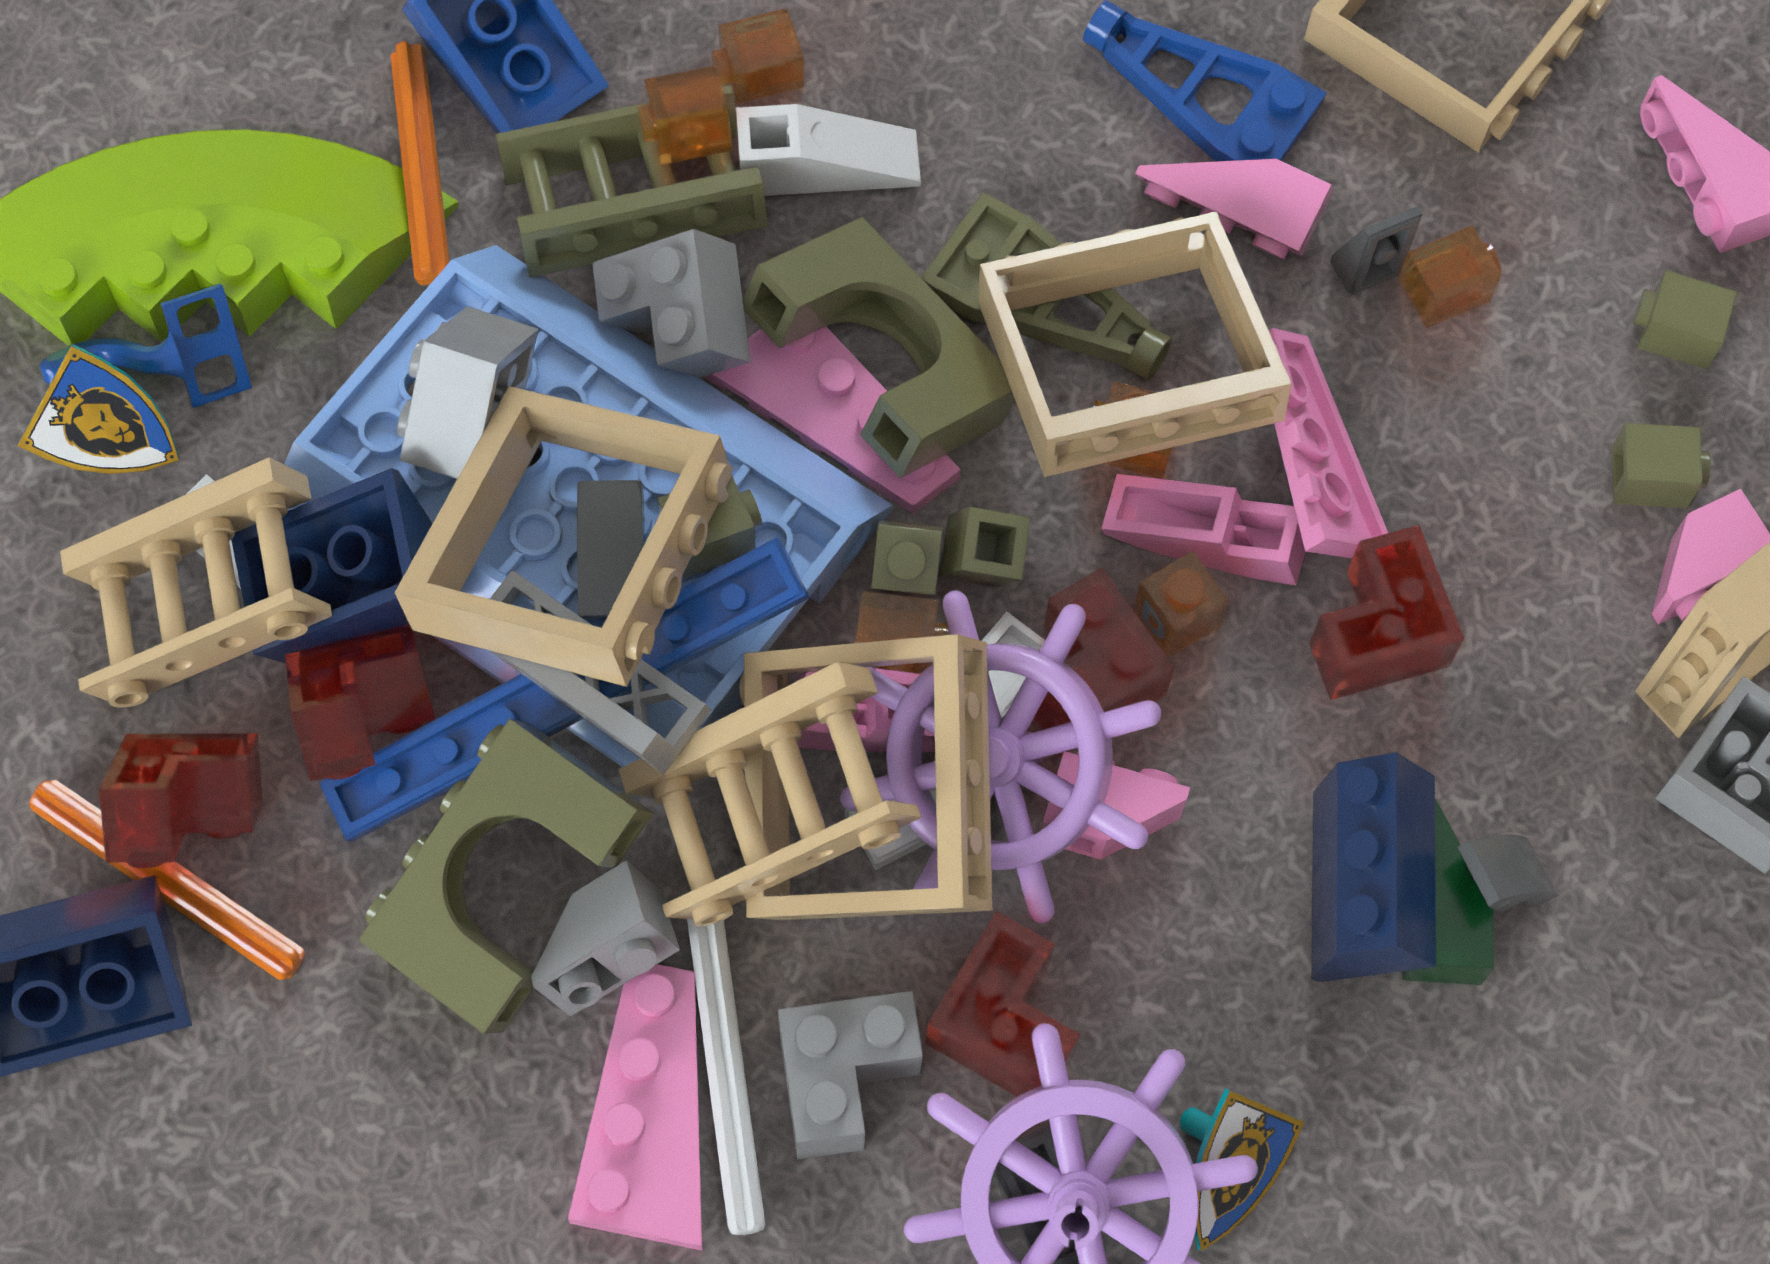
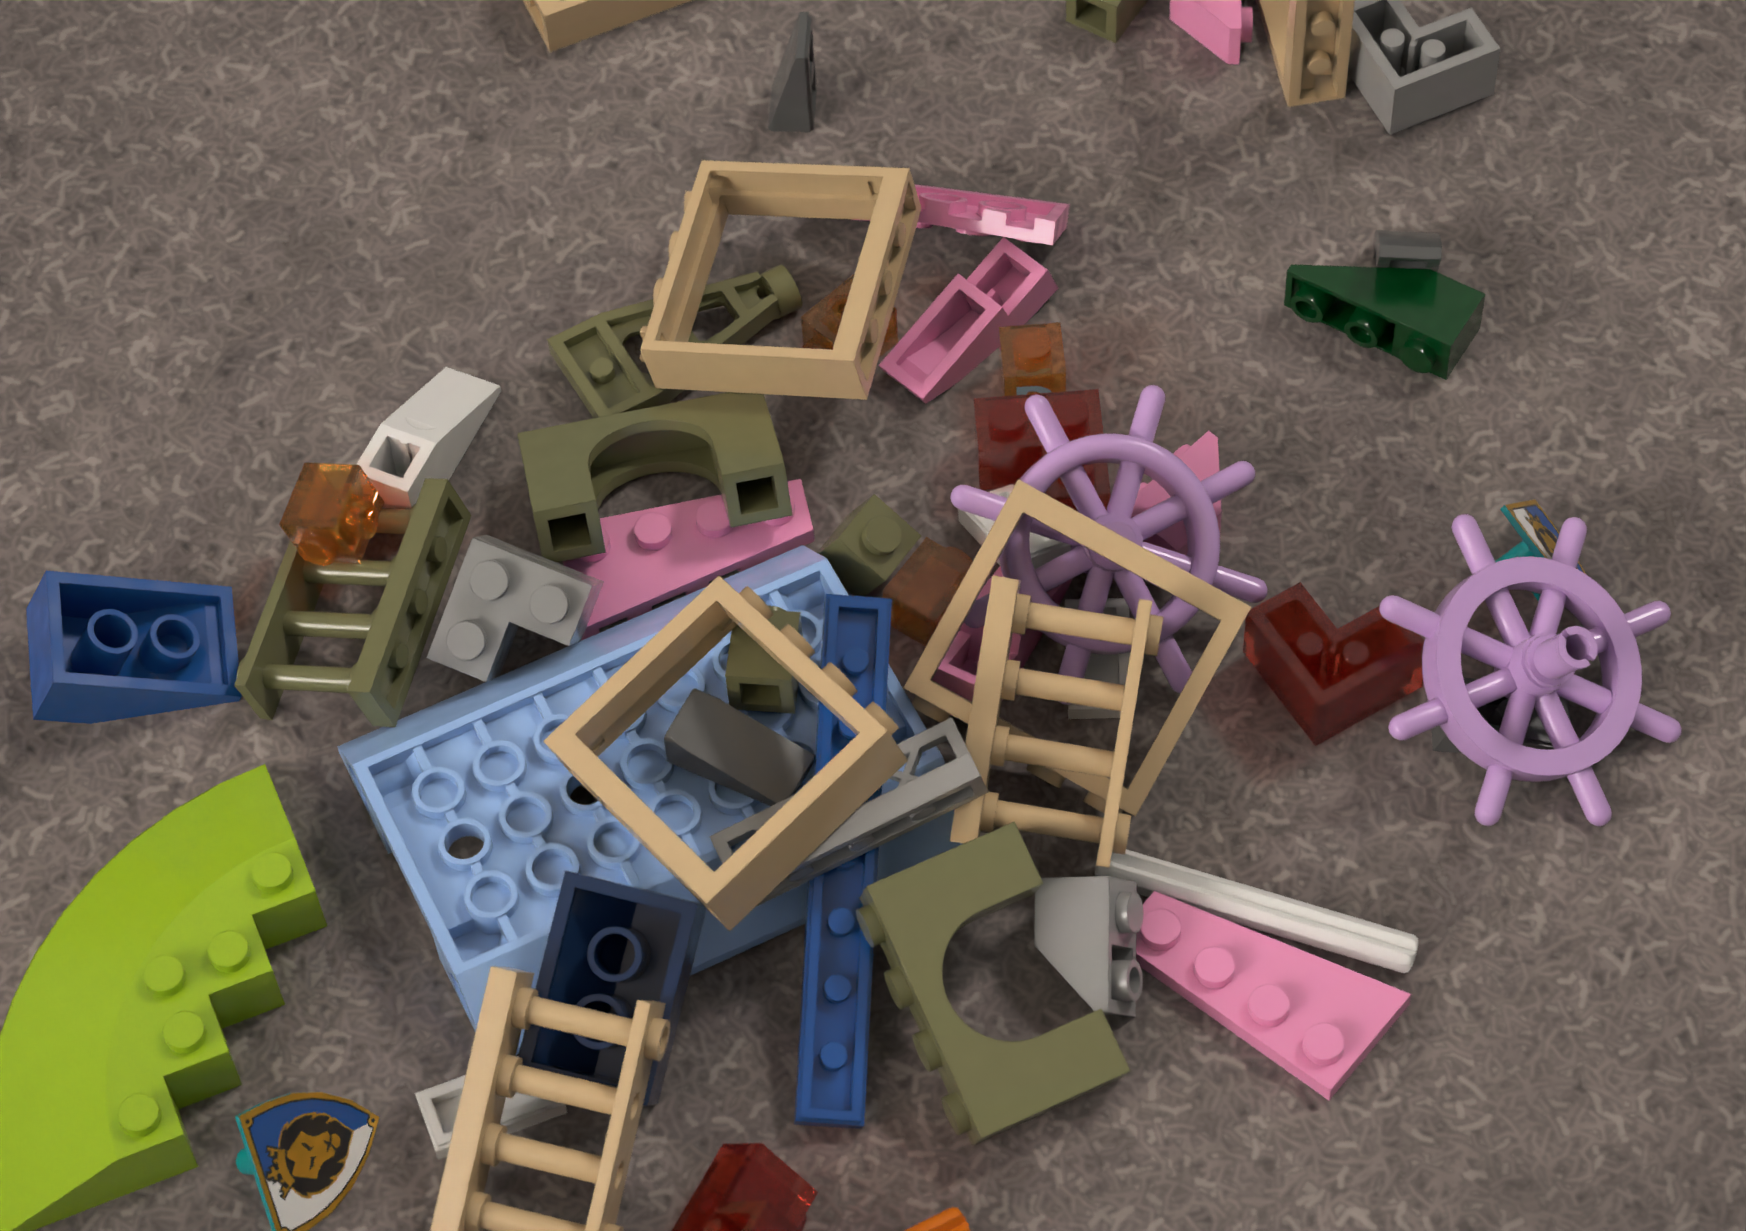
camera: 55 degrees left, 10 degrees down
(174, 355) = (283, 1060): blue piece -> none
(352, 692) = (737, 1044): clear red brick -> none
(419, 162) = (215, 766): orange axle -> none
(459, 385) = (523, 781): brick -> none
(759, 56) = (286, 440): clear orange brick -> none
(831, 1052) = (1304, 821): light grey brick -> none
(985, 546) = (899, 474): olive brick -> none
(1256, 195) = (700, 126): bright pink slope -> none
(1266, 127) = (607, 97): blue plate -> none
(1373, 869) = (1352, 342): dark blue slope -> none
(1397, 628) = (1141, 218): clear red brick -> none
(1450, 276) = (849, 47): clear orange brick -> none

